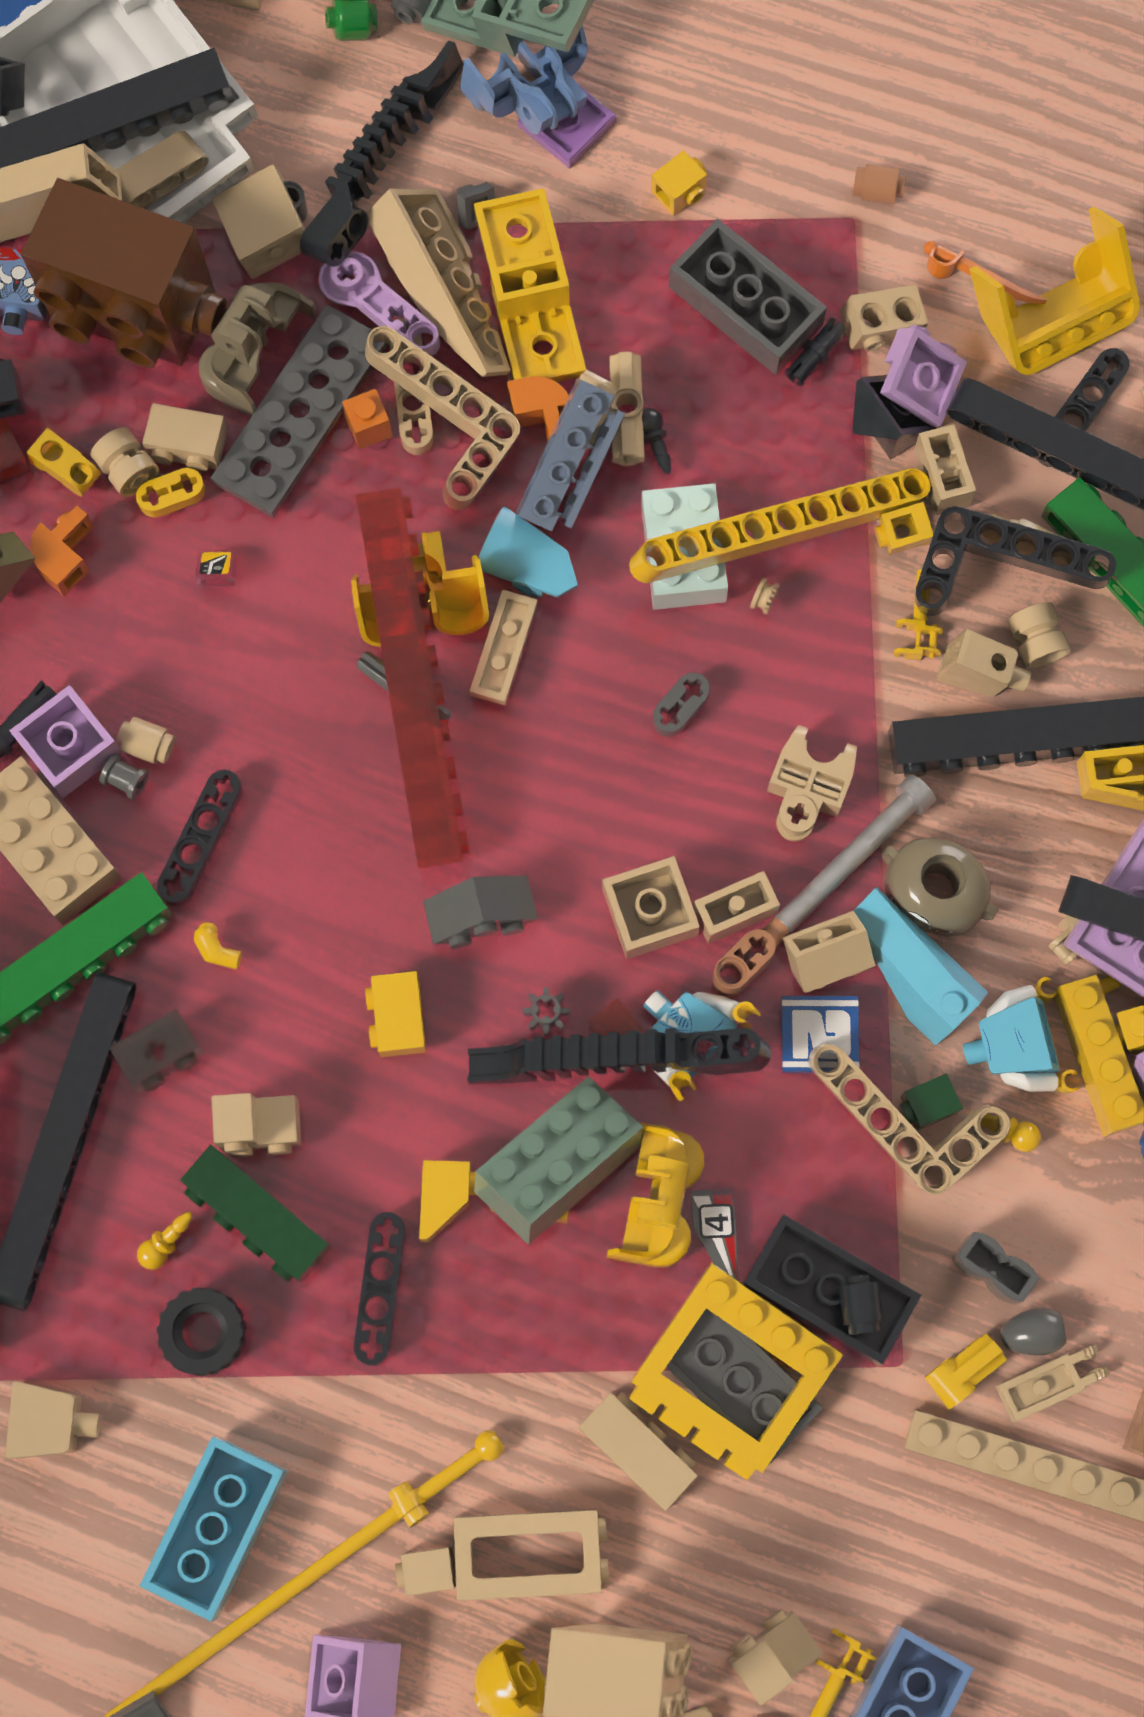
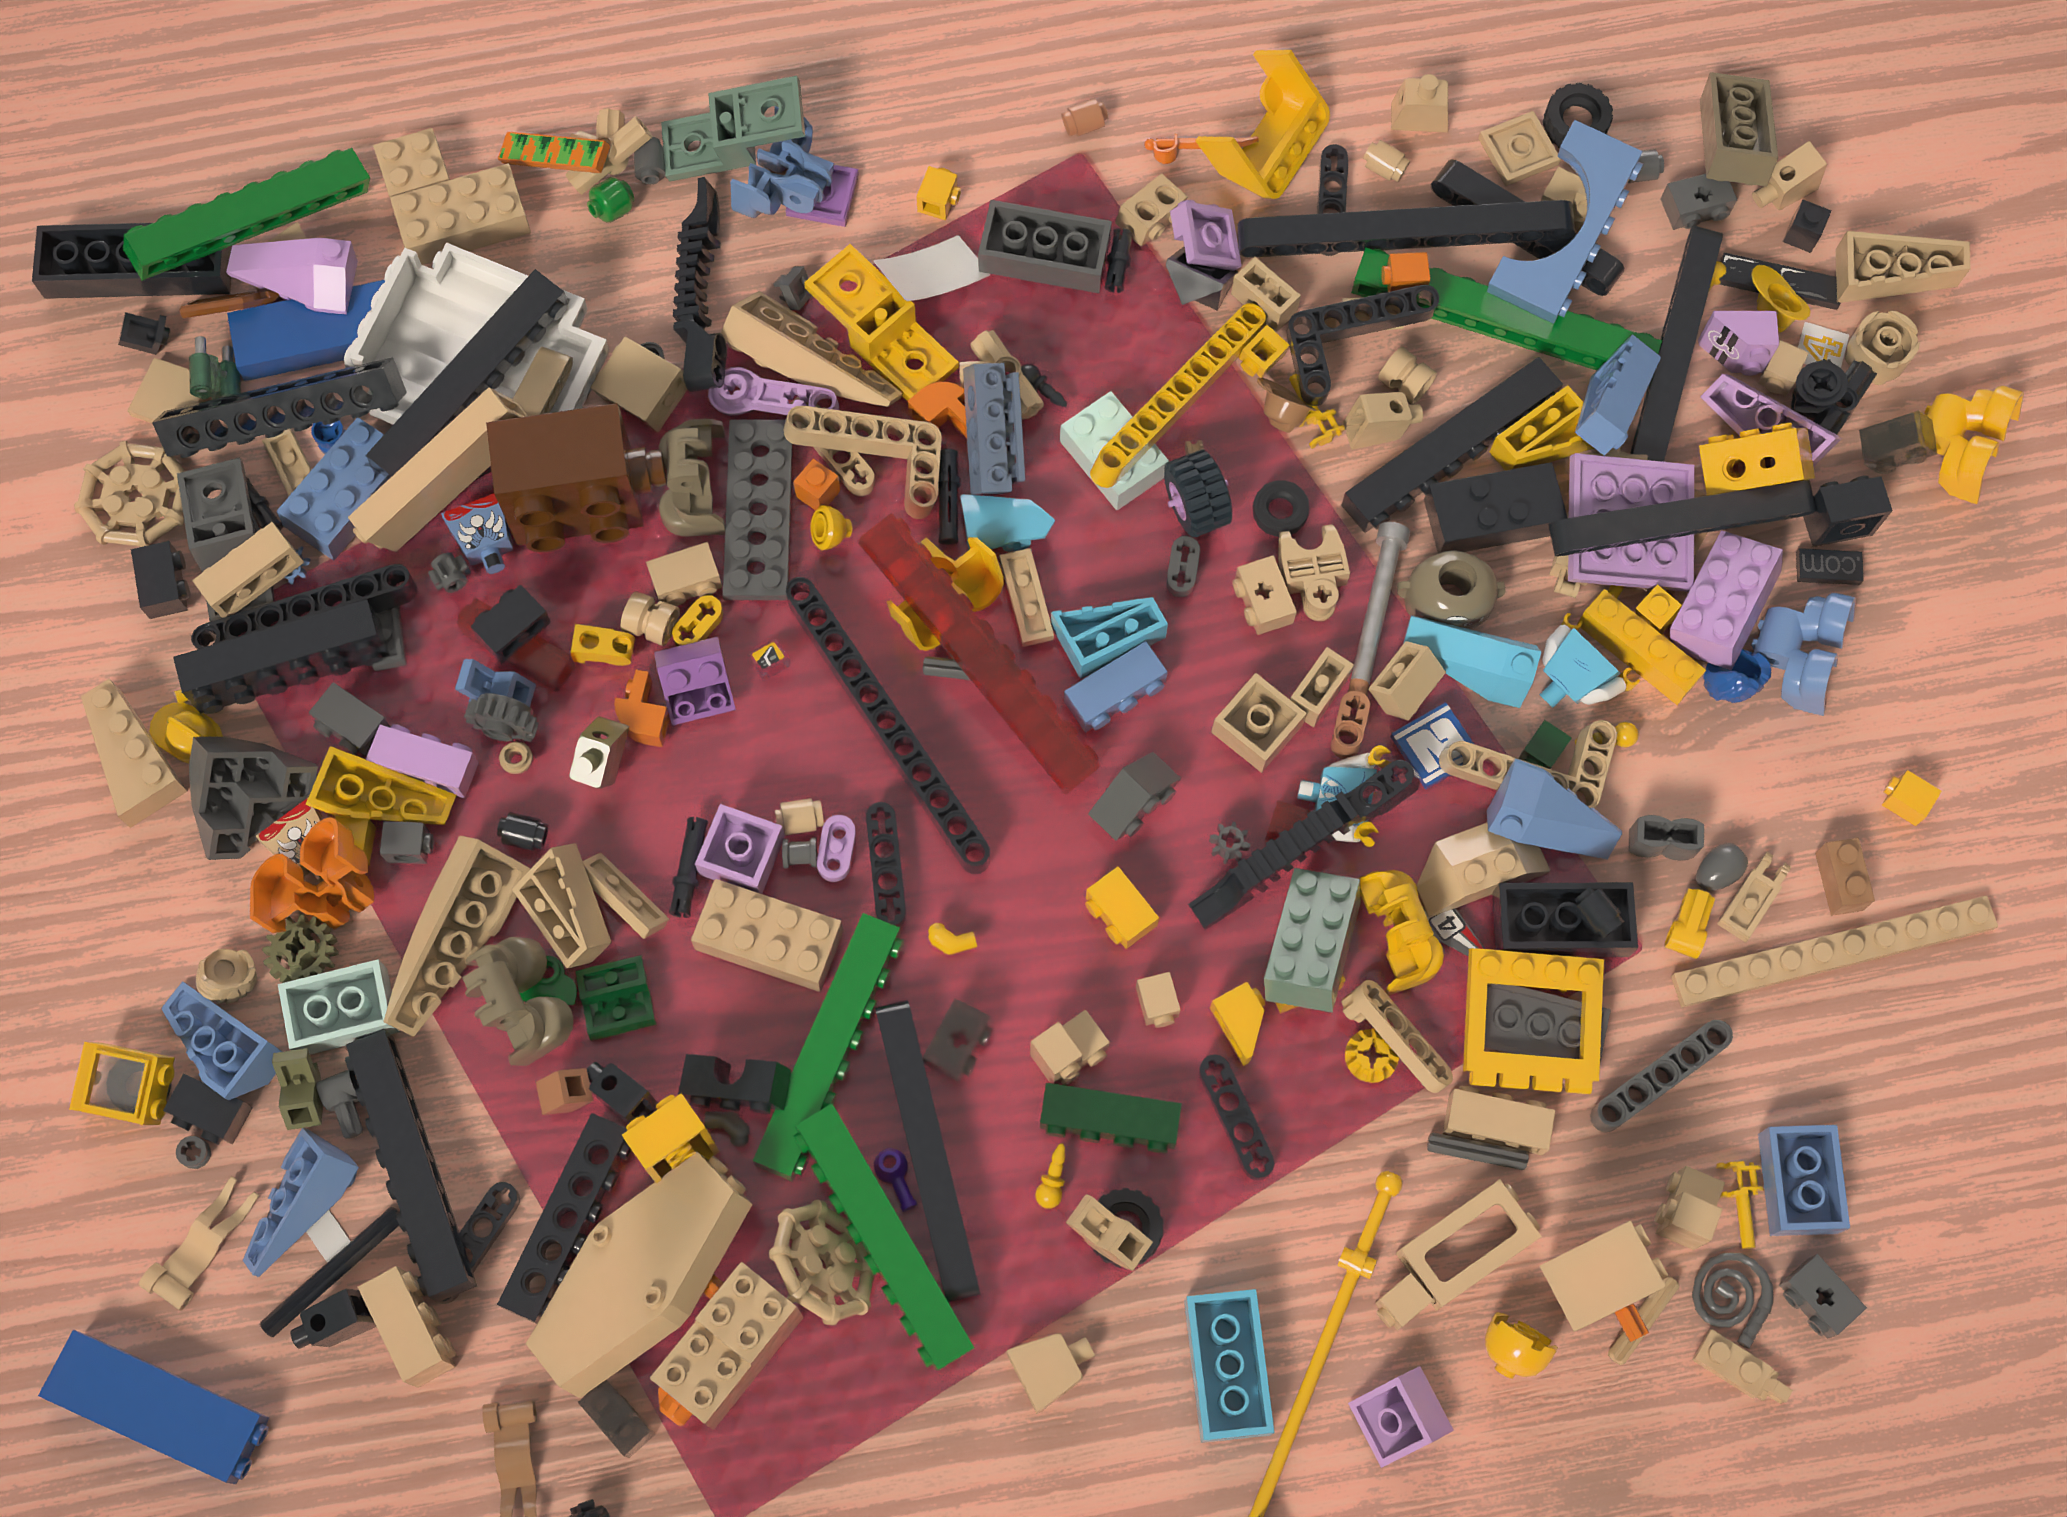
camera: 35 degrees left, 5 degrees down
(19, 1147) = (895, 1176): none -> dark purple bar
(129, 547) = (694, 681): none -> medium lavender slope
(159, 791) = (836, 849): none -> lavender plate
(171, 1330) = (1109, 1234): none -> tan brick
(289, 714) = (890, 738): none -> black beam
(354, 468) = (829, 527): none -> yellow brick
(375, 1127) = (1158, 1000): none -> tan brick
(512, 466) = (948, 530): none -> black pin
(533, 789) = (1116, 687): none -> medium blue brick
(558, 731) = (1105, 633): none -> medium azure wedge
(571, 1253) = (1372, 1003): none -> tan beam
(571, 1305) = (1360, 1065): none -> yellow gear
(600, 1467) = (1477, 1151): none -> dark grey axle
(614, 259) = (932, 270): none -> white sticker
(736, 638) = (1198, 493): none -> black wheel
(744, 802) = (1264, 578): none -> tan brick
(783, 1177) = (1472, 866): none -> tan wedge
(818, 678) = (1285, 490): none -> black tyre
(852, 1510) = (1675, 1068): none -> dark grey beam
(875, 1168) = (1544, 814): none -> medium blue wedge
(890, 594) = (1283, 406): none -> medium nougat piece
(1040, 825) = (1494, 508): none -> black brick
(1101, 526) = (1406, 271): none -> orange brick

